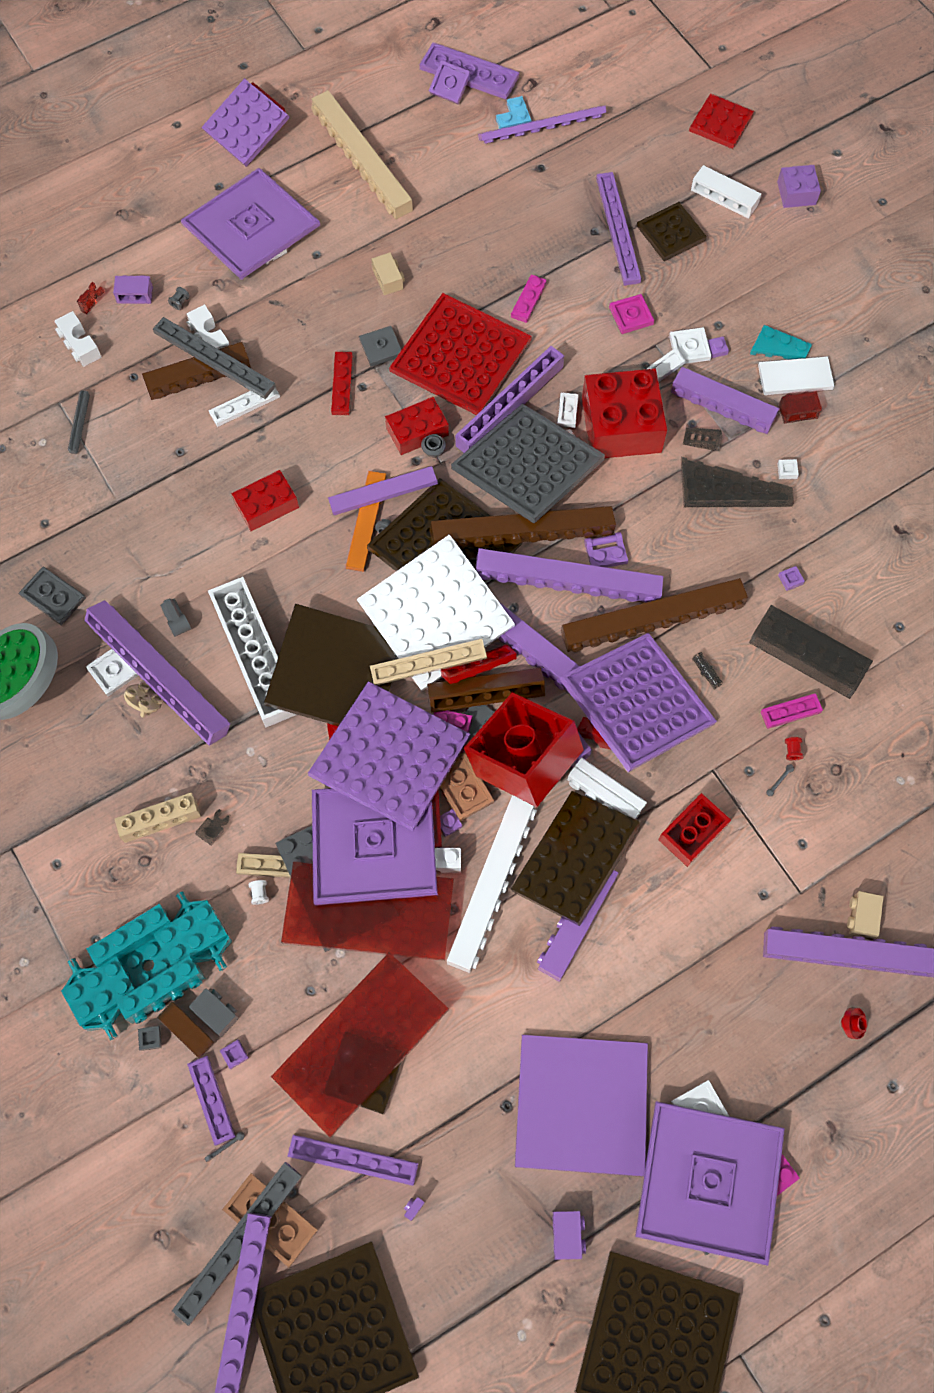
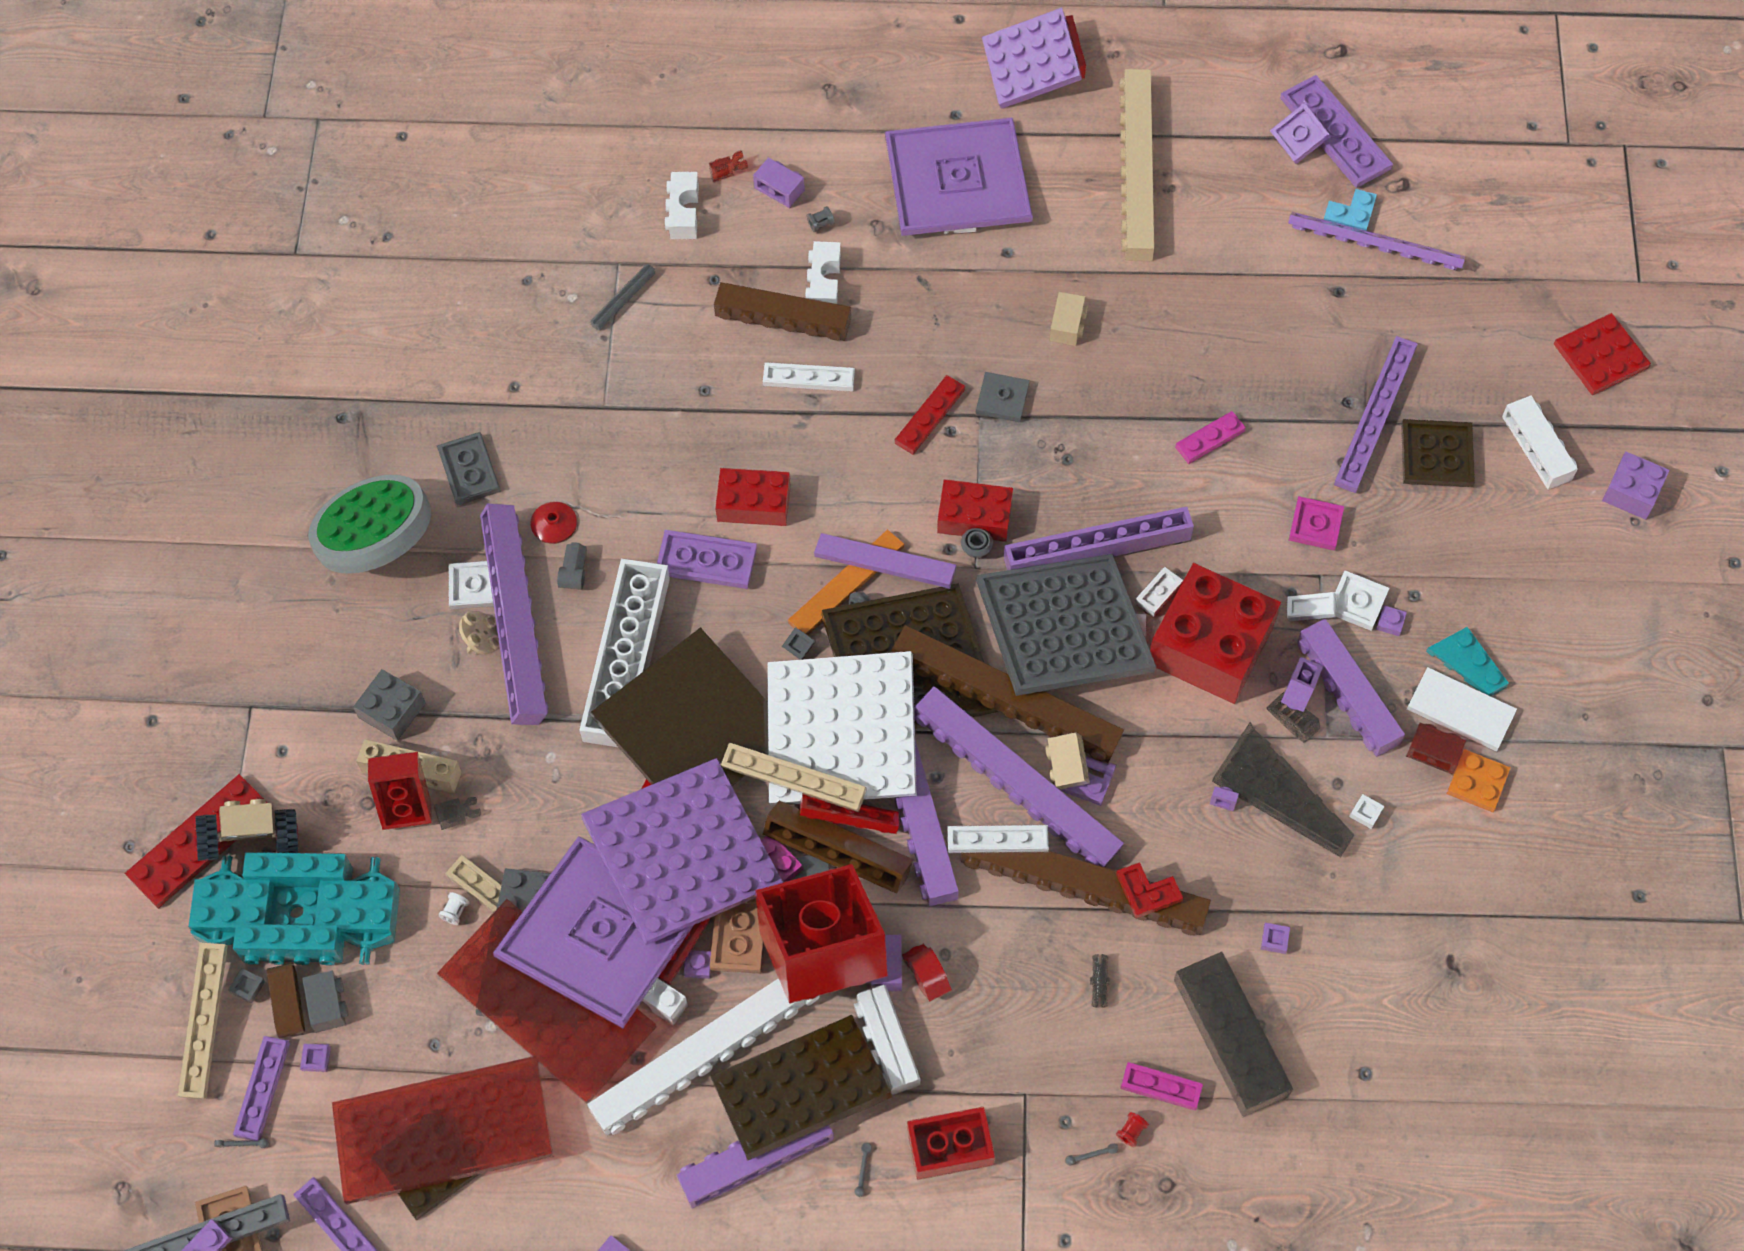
camera: 35 degrees right, 5 degrees down
(40, 963) = (175, 858): none -> red plate
(69, 928) = (245, 823): none -> brick
(113, 785) = (389, 704): none -> dark grey brick
(137, 1083) = (202, 1021): none -> tan plate
(143, 602) = (556, 530): none -> red dish
(166, 836) = (399, 790): none -> red brick
(214, 358) = (806, 309): dark grey plate -> none
(263, 558) = (707, 558): none -> medium lavender plate
(364, 577) = (798, 643): none -> dark grey plate
(460, 354) = (1084, 457): red plate -> none
(585, 621) = (998, 838): none -> white tile
(593, 545) = (1067, 761): none -> tan brick
(637, 701) = (990, 963): medium lavender plate -> none
(641, 869) = (866, 1149): none -> dark grey hinge
(698, 414) = (1301, 684): none -> medium lavender brick
(700, 512) = (1224, 798): none -> medium lavender plate
(700, 600) = (1147, 897): none -> red plate
(837, 413) = (1478, 780): none -> orange plate

